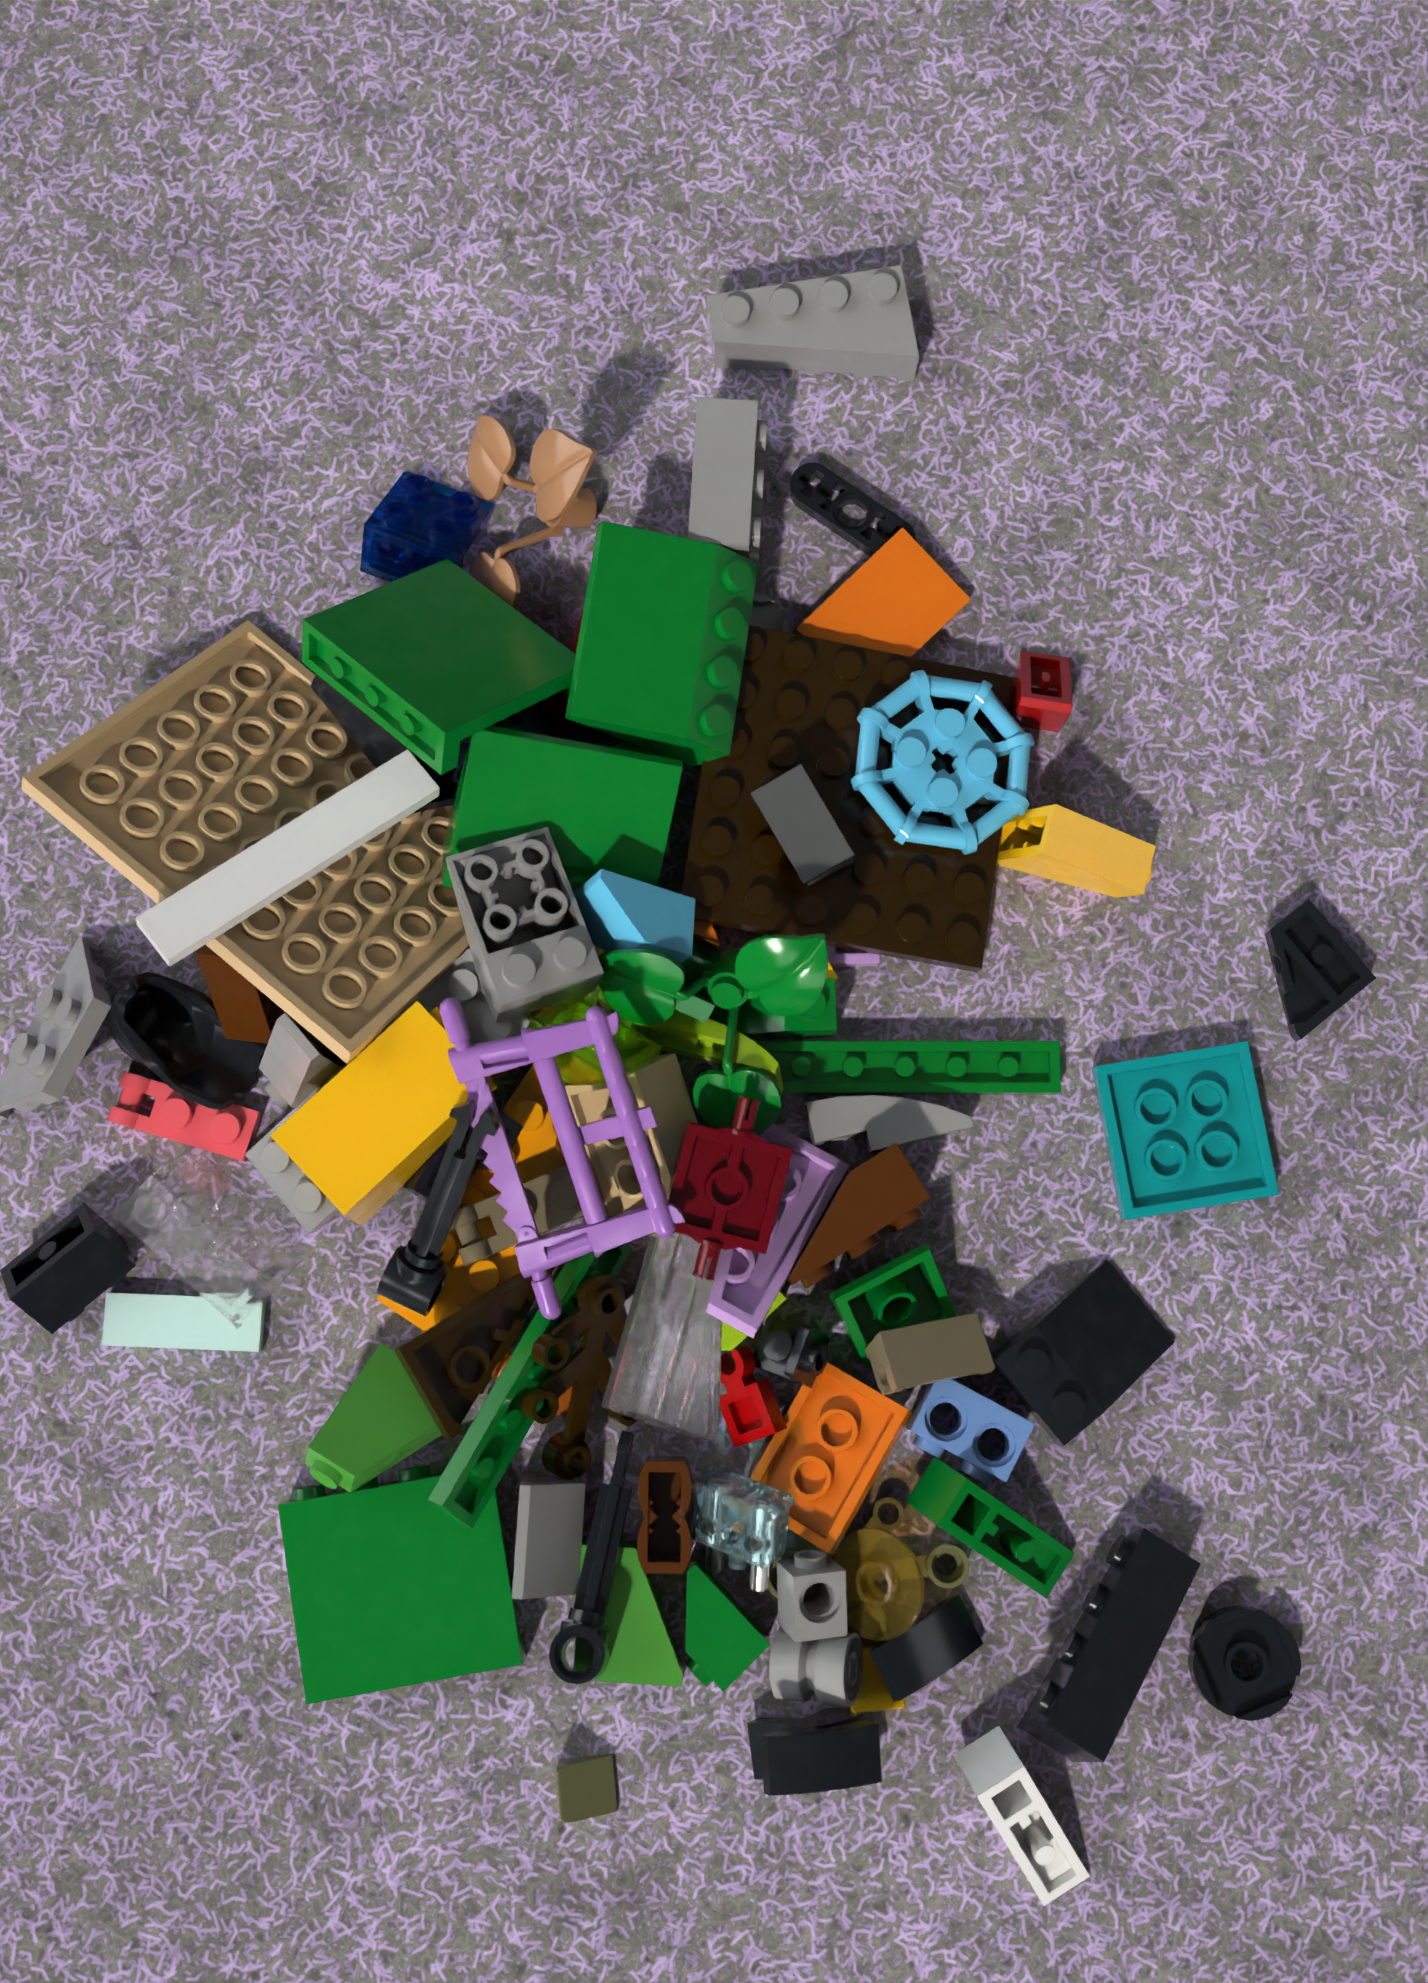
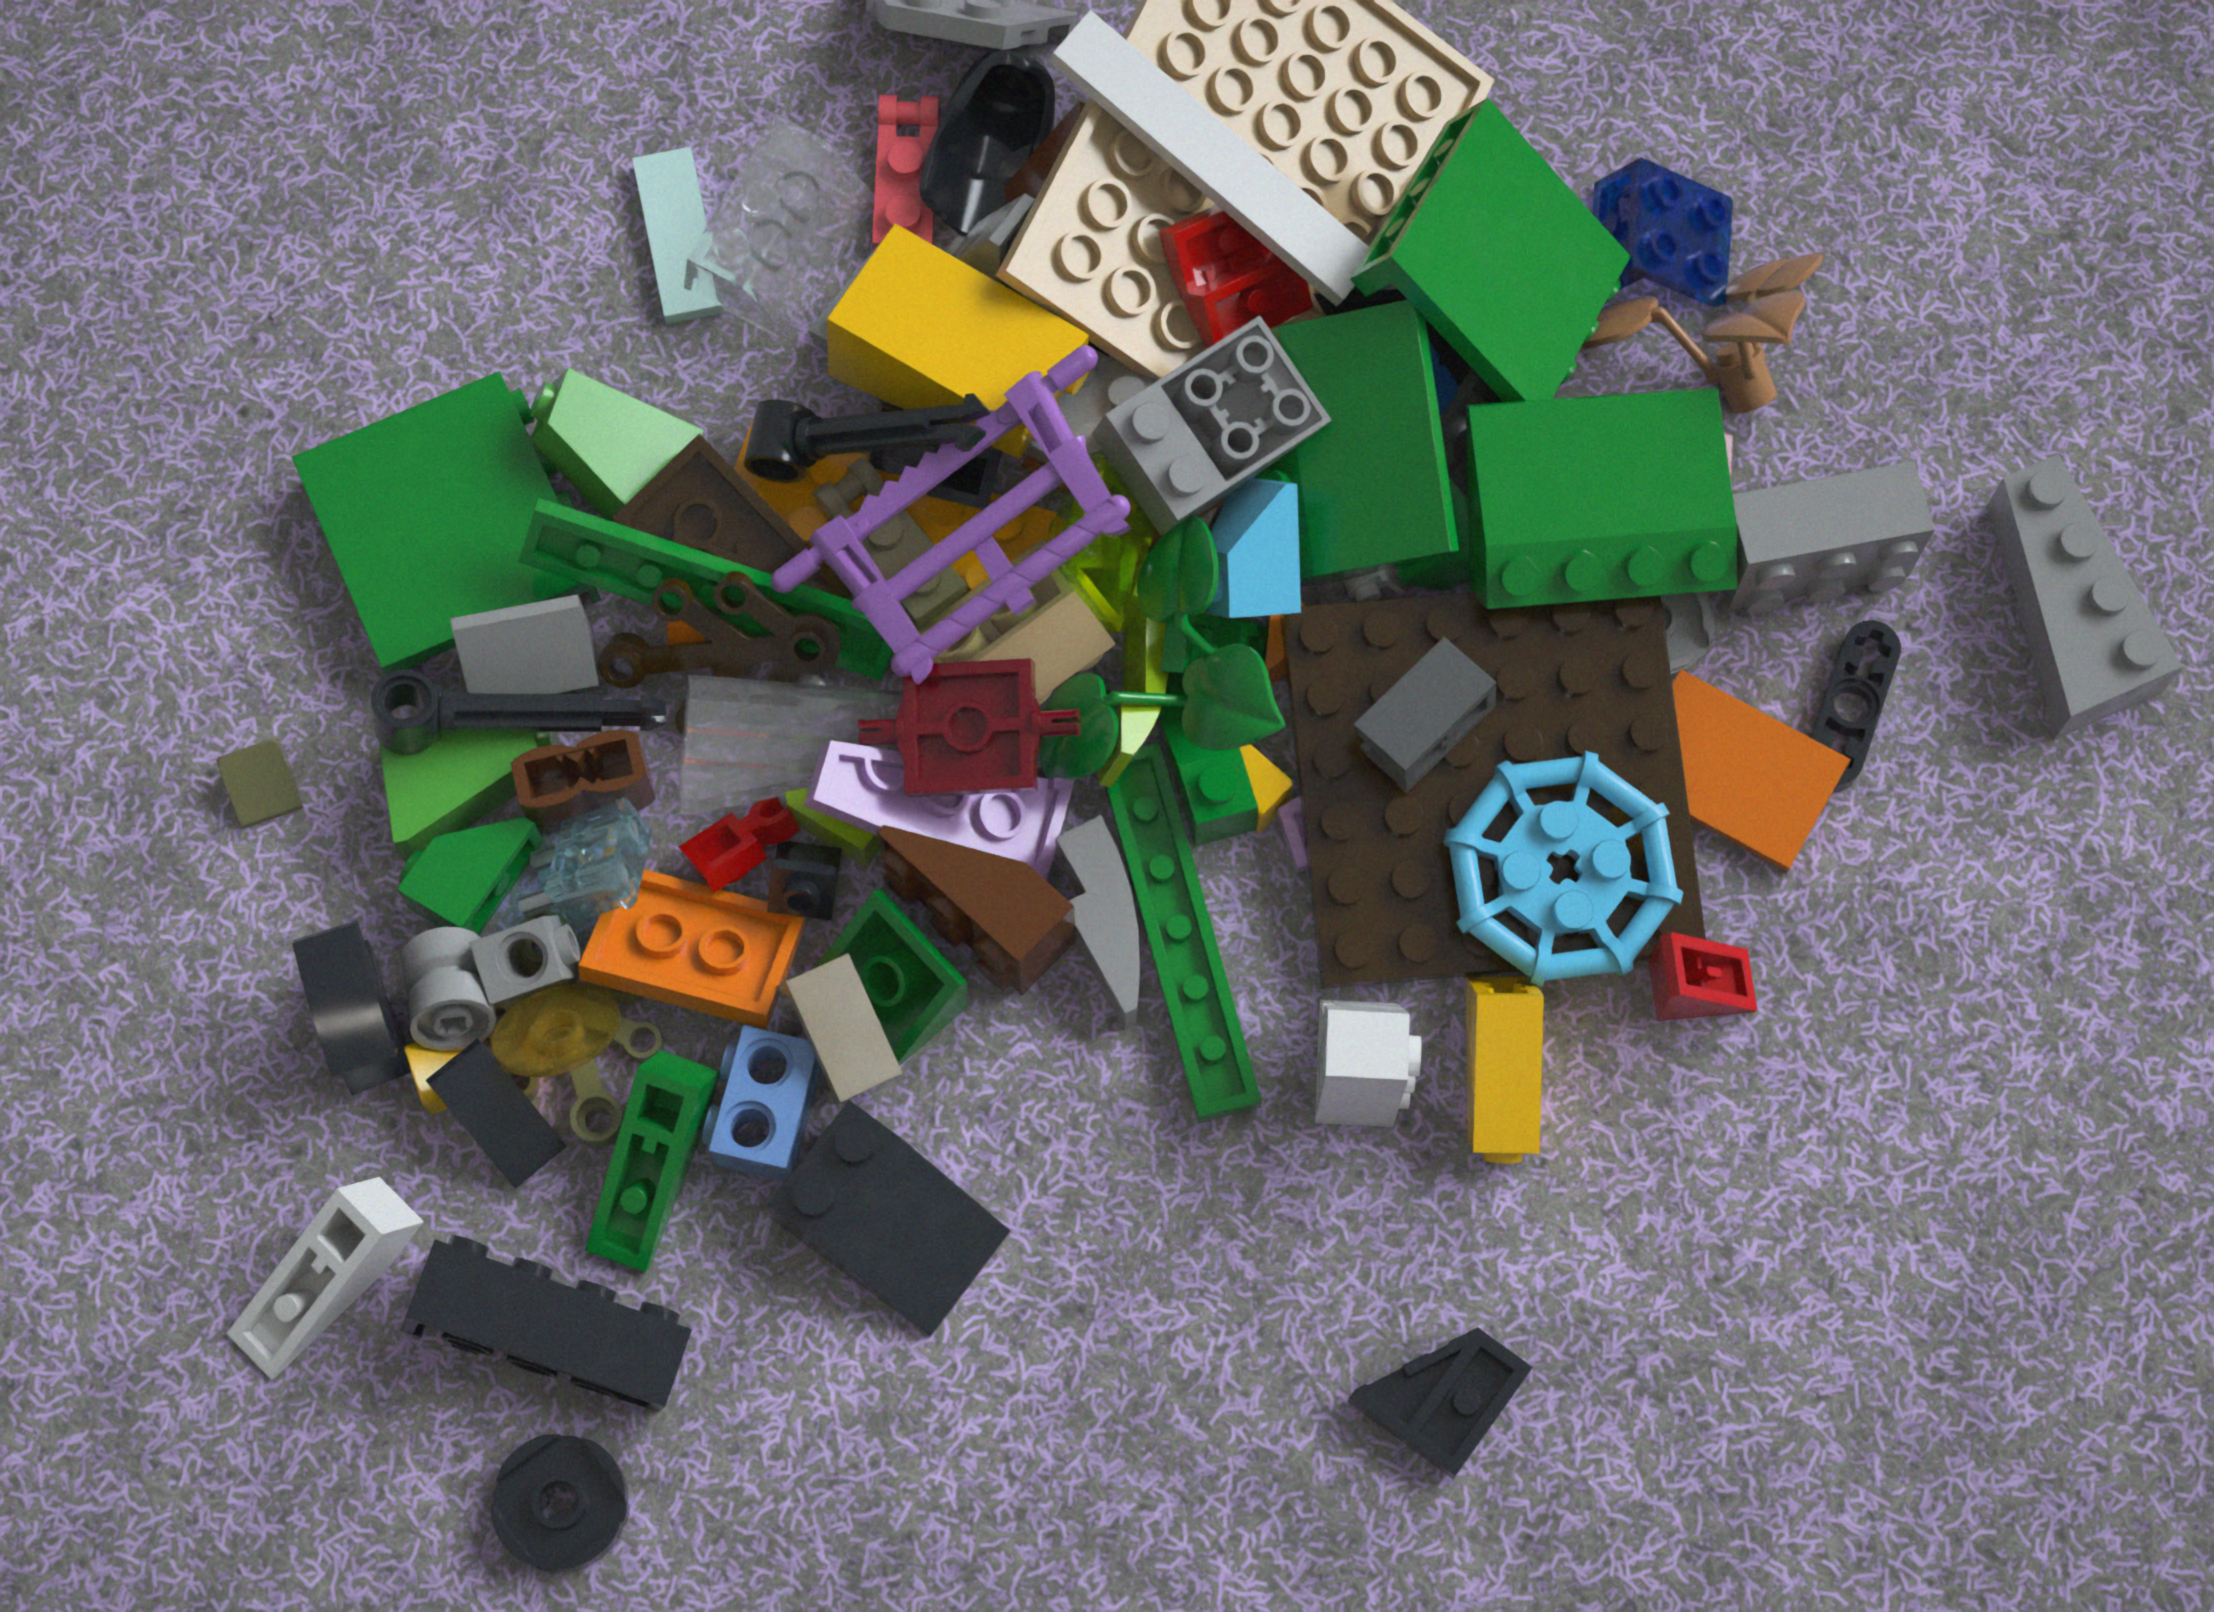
camera: 75 degrees right, 10 degrees down
(67, 1268) = (705, 97): black brick -> none
(388, 876) = (1229, 276): none -> red slope
(1054, 951) = (1364, 1063): none -> white wedge
(1184, 1131) = (1194, 1283): teal plate -> none

